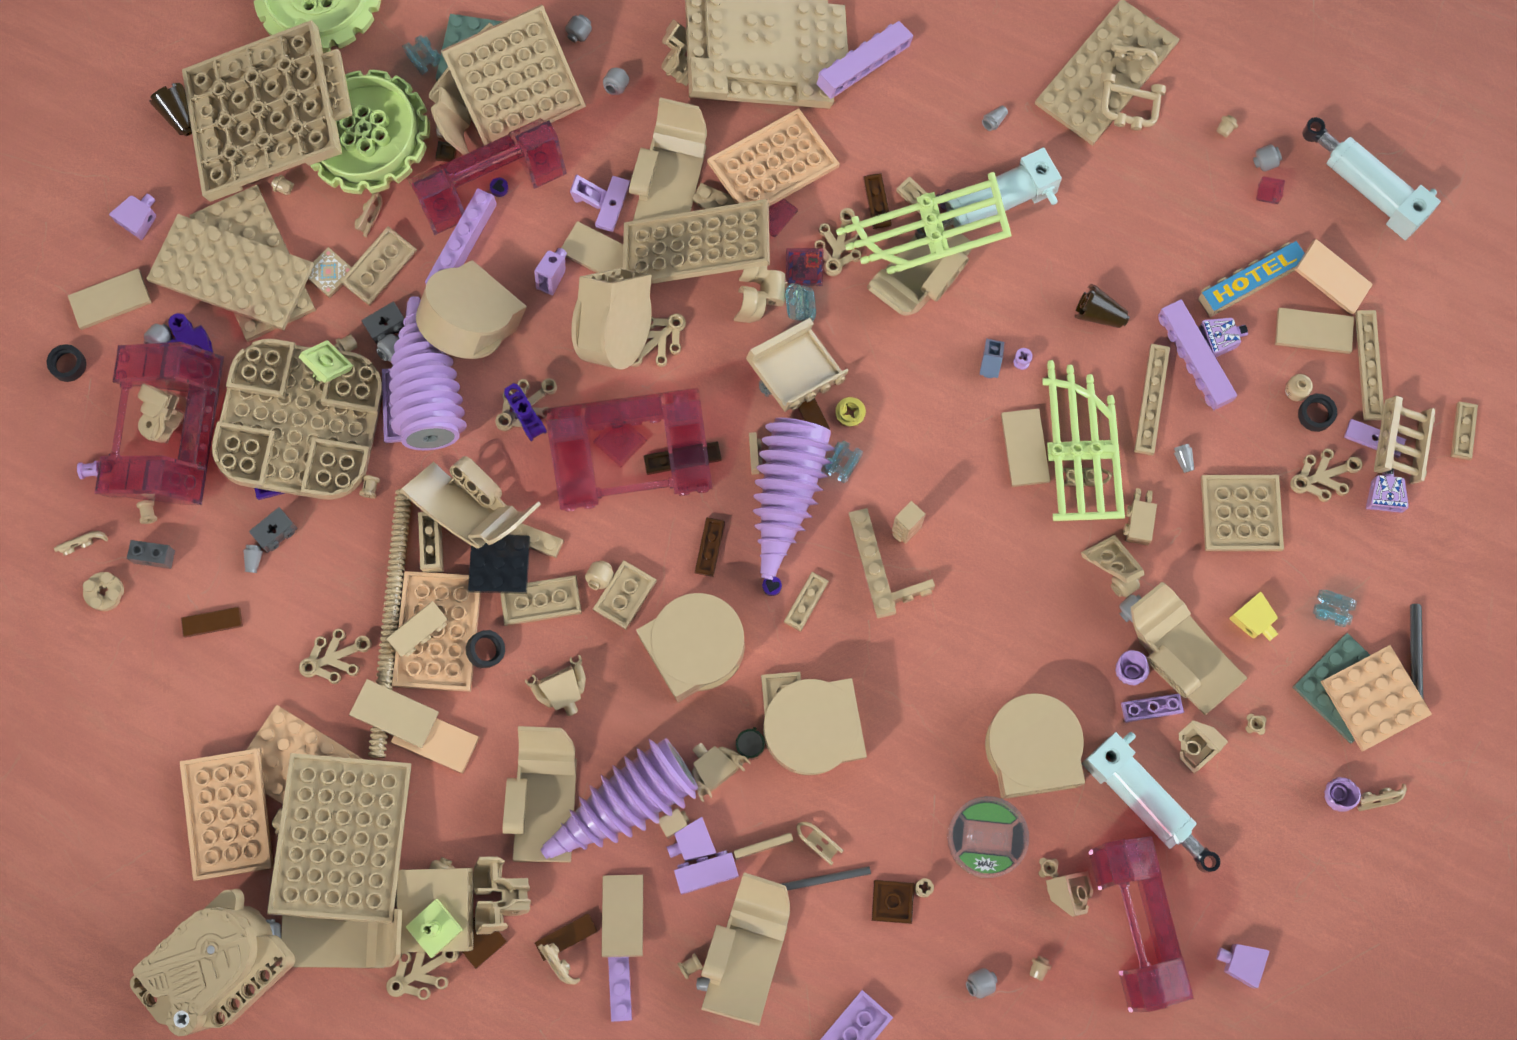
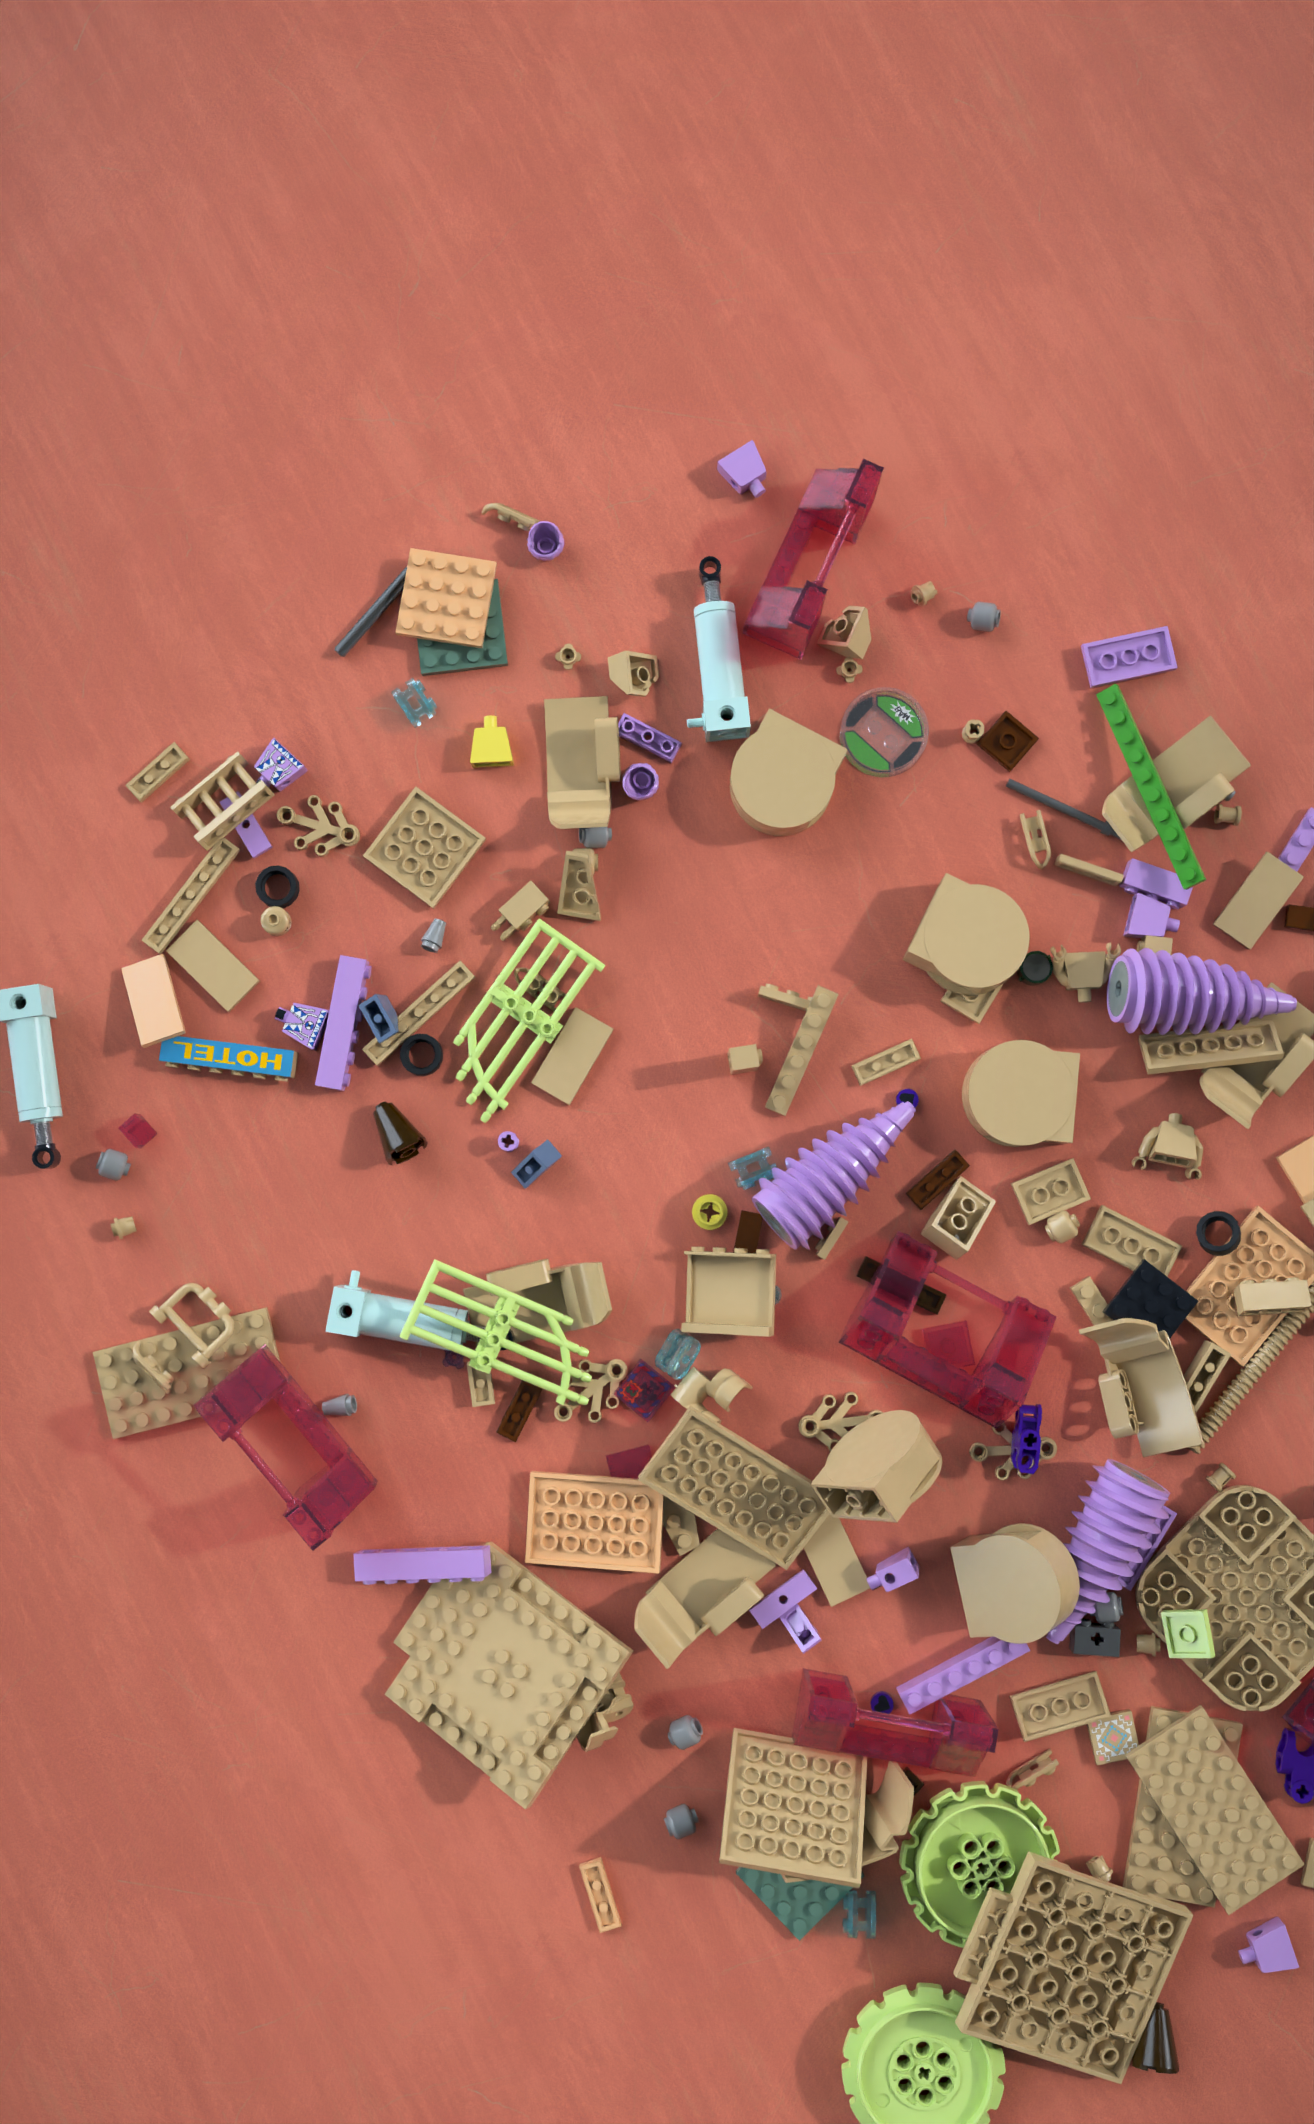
camera: 140 degrees left, 10 degrees up
(563, 791) = (1239, 1045): none -> tan plate
(676, 530) = (958, 1218): none -> tan slope
(764, 940) = (1151, 787): none -> bright green plate
(960, 50) = (331, 1492): none -> clear pink brick
(1129, 359) = (404, 1054): none -> black tyre
(1175, 374) = (380, 1016): none -> sand blue slope

